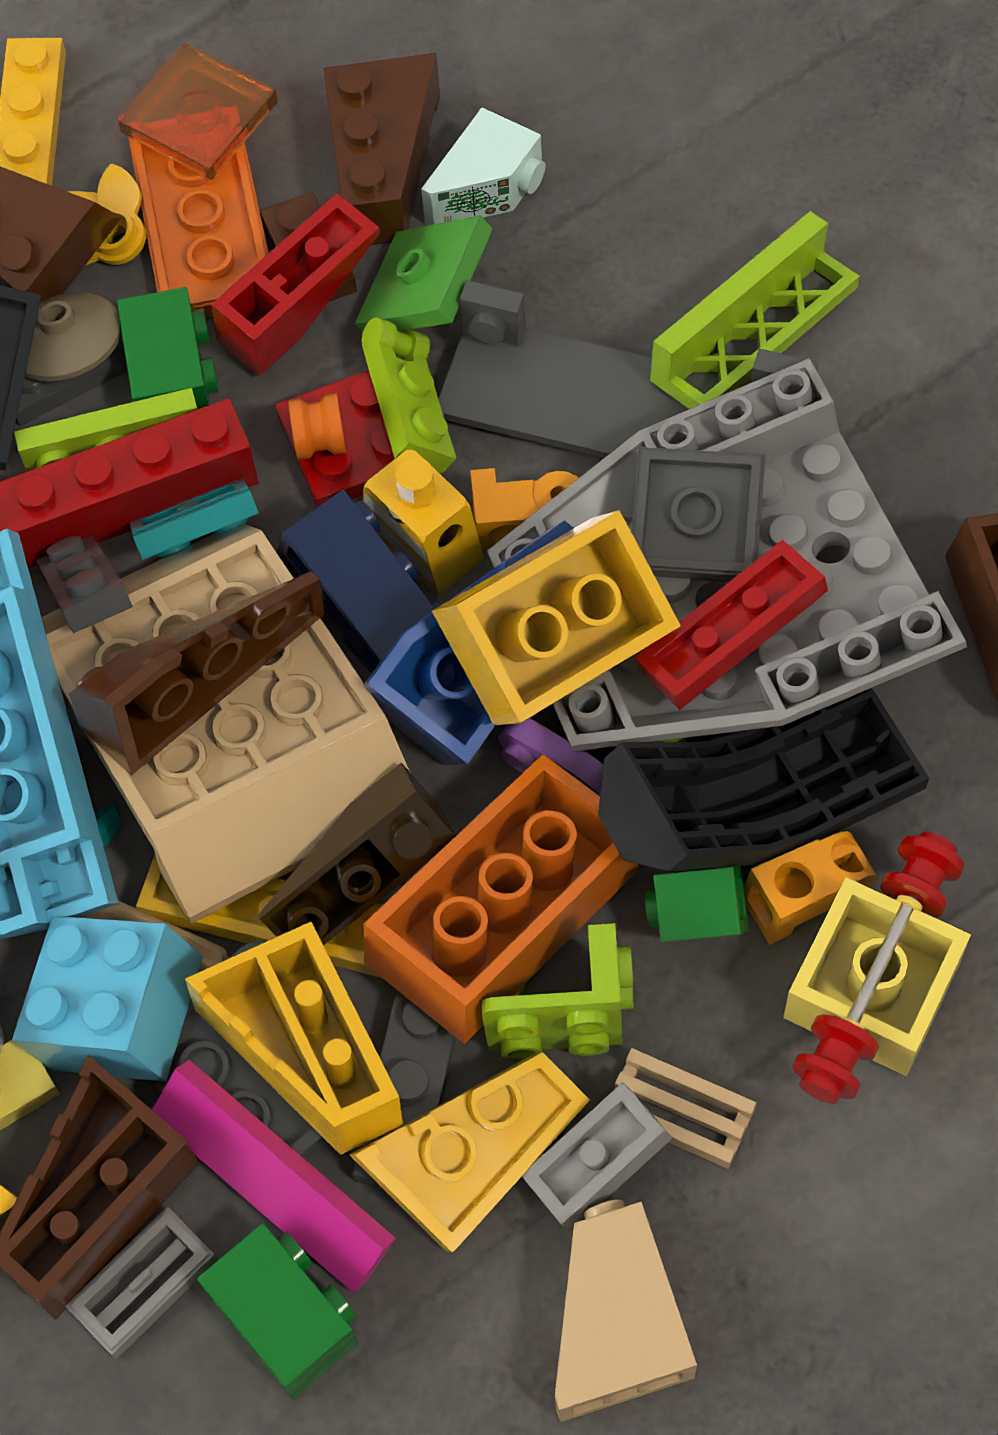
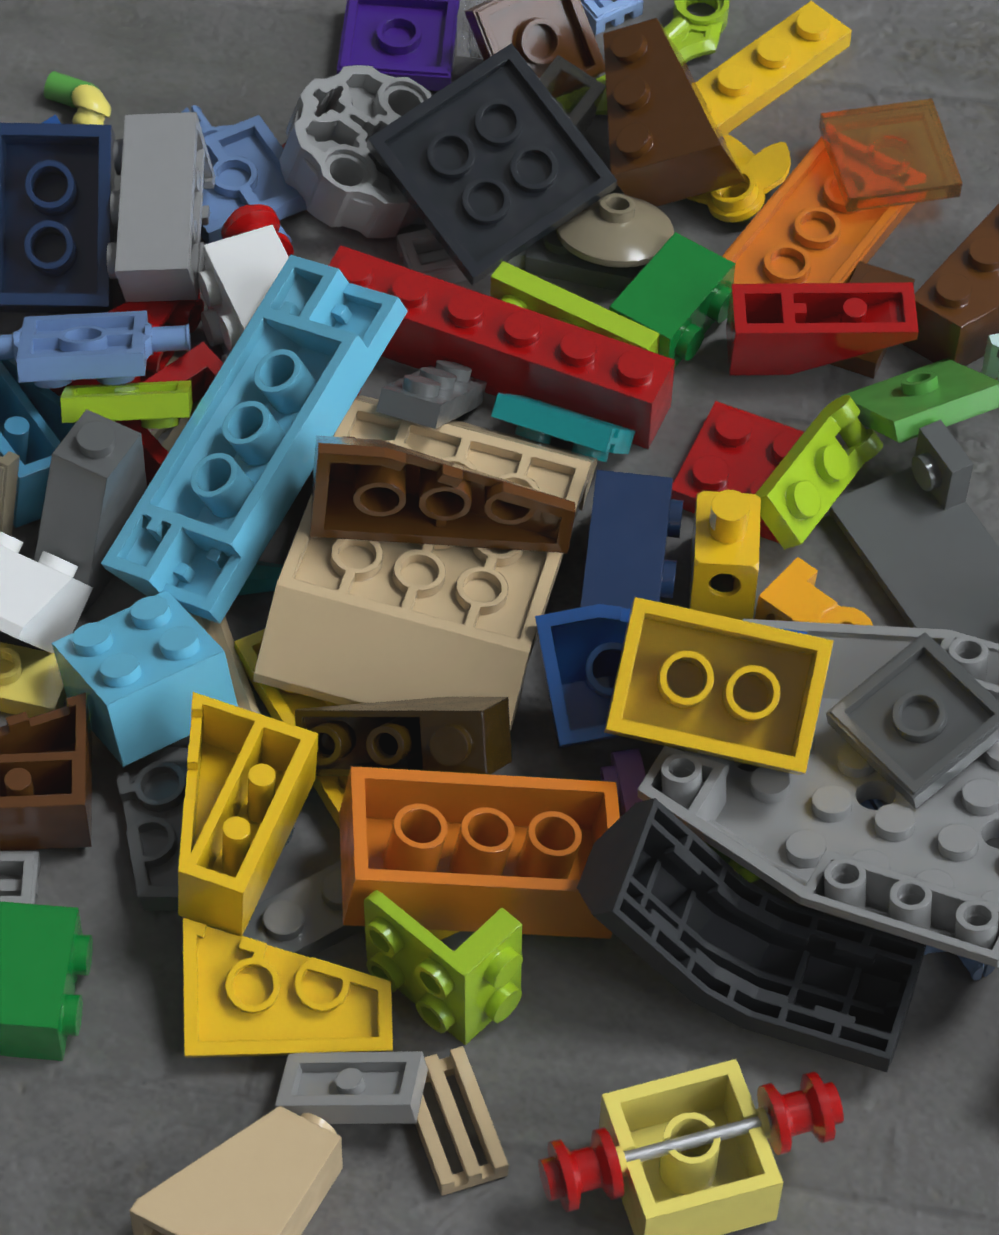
camera: 40 degrees right, 10 degrees down
(273, 1177) = (122, 892): dark pink tile -> none
(317, 426) = (717, 431): orange wheel -> none
(698, 904) = (620, 991): green brick -> none
(731, 624) = (852, 811): red plate -> none
(804, 883) = (709, 1037): light orange leg -> none

